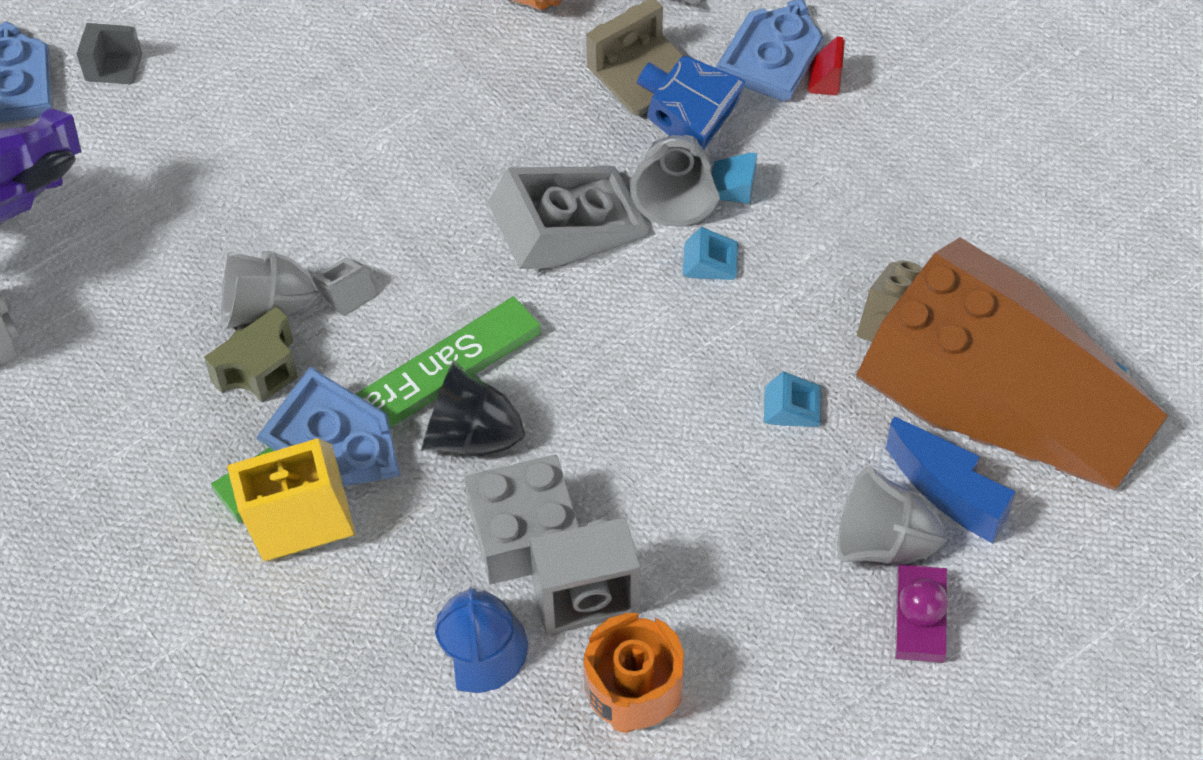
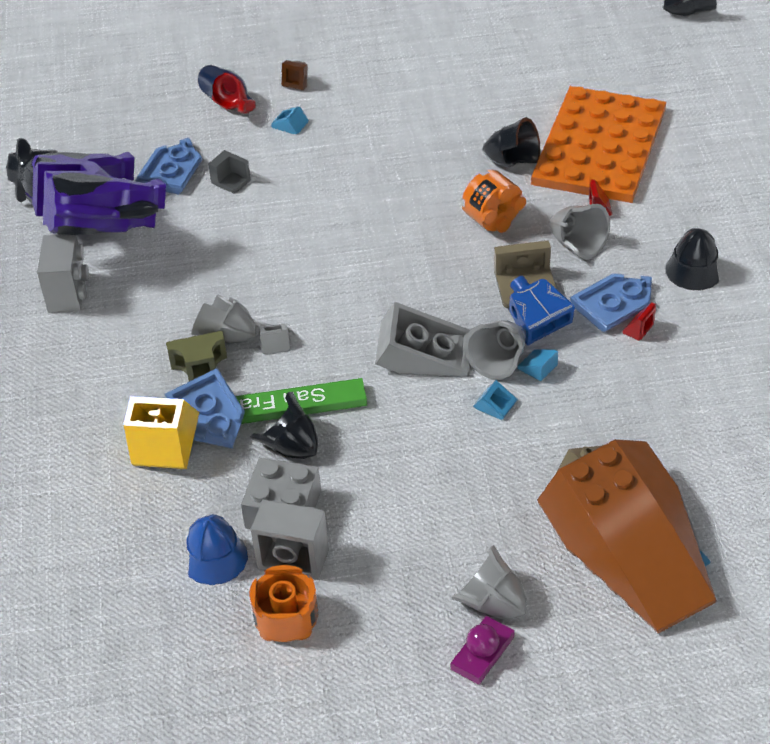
camera: 30 degrees right, 10 degrees down
(792, 402) = (488, 500): dark azure slope -> none
(950, 479) = (553, 583): blue slope -> none

